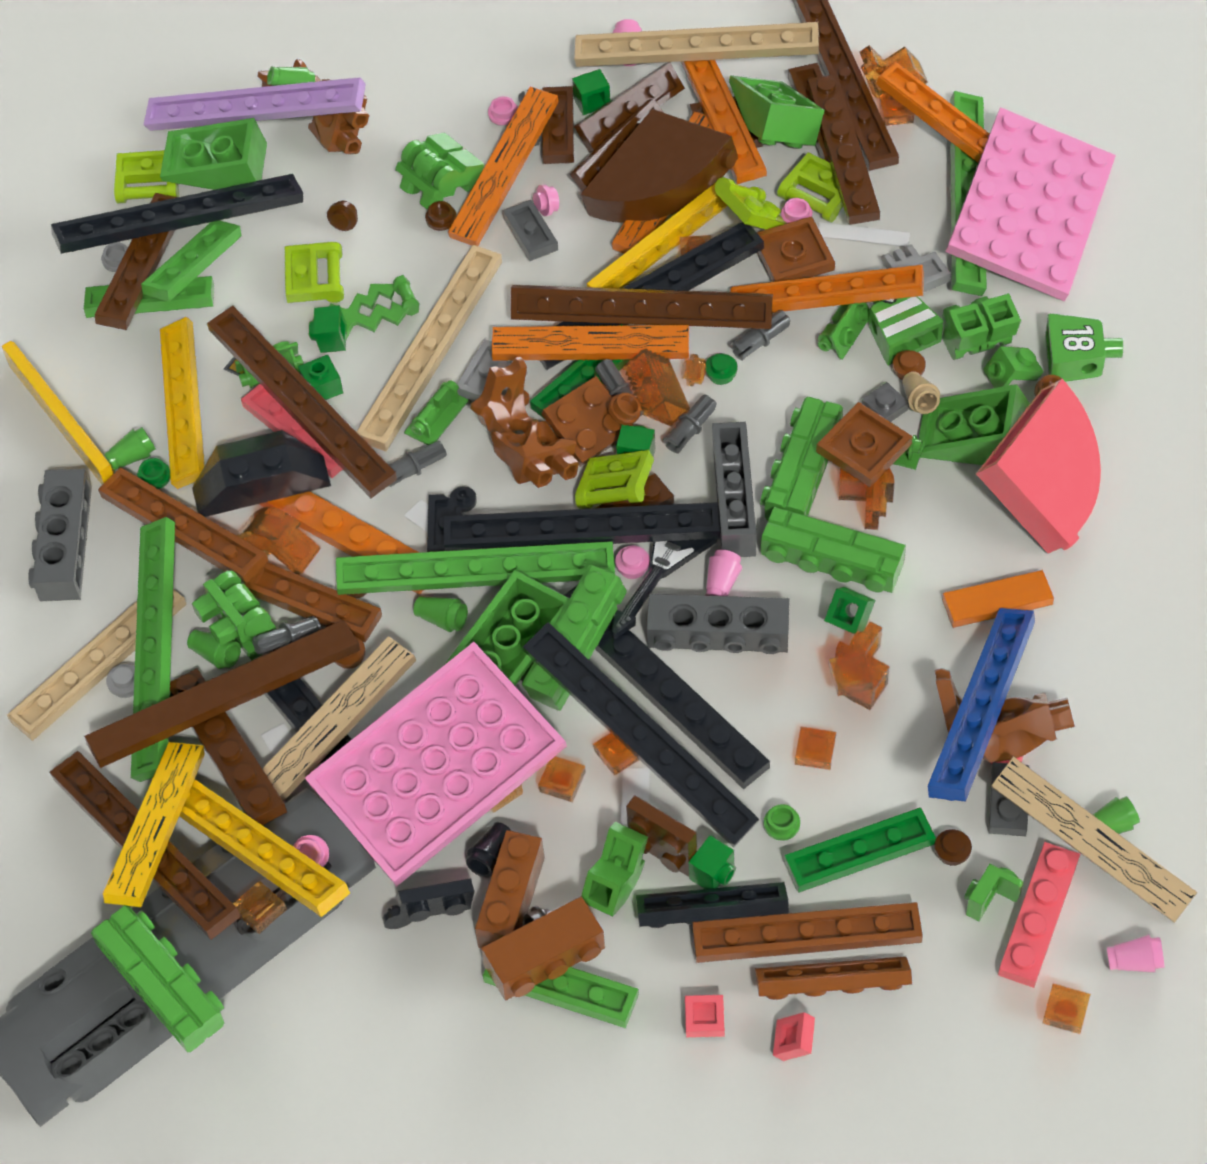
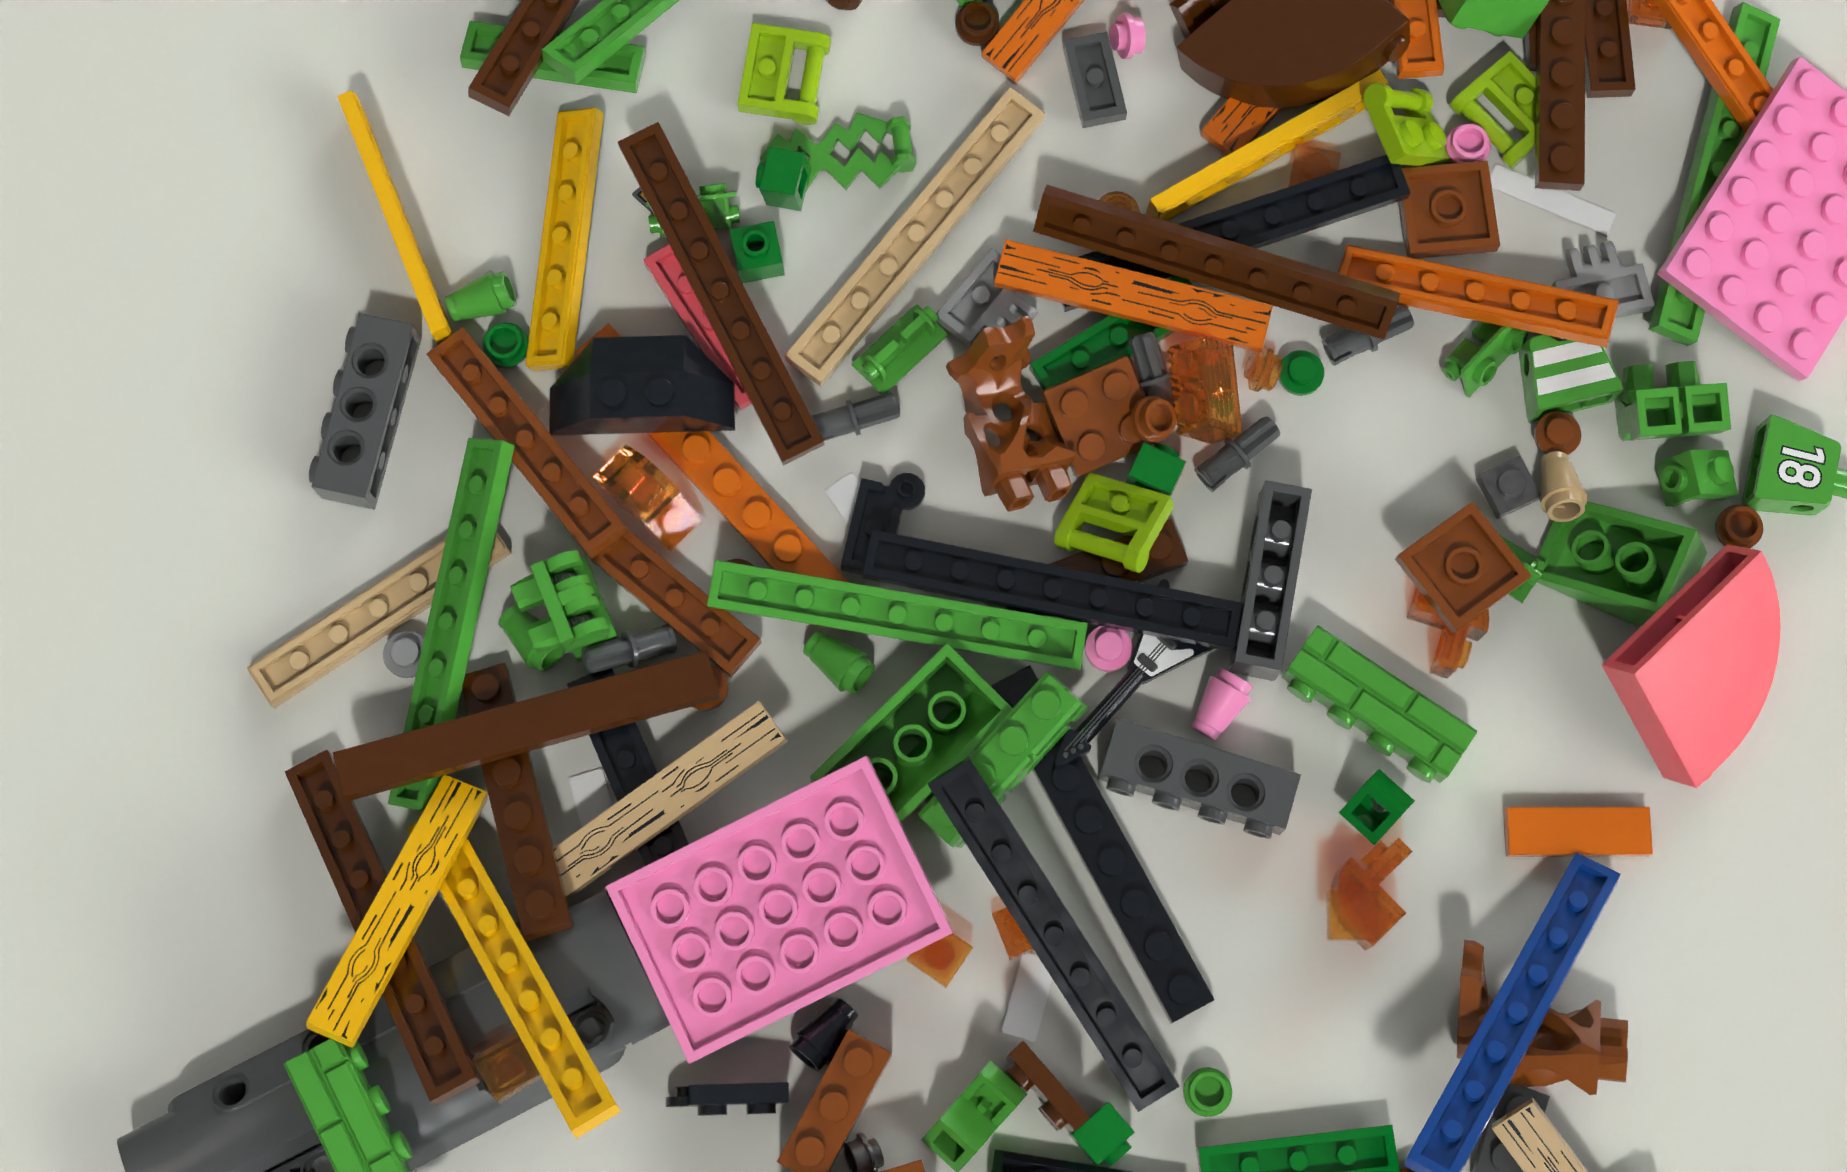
camera: 10 degrees right, 20 degrees up
(314, 848) = (588, 1004): bright pink plate -> none
(801, 467) = (1368, 565): bright green brick -> none
(815, 748) = (1278, 992): clear orange plate -> none

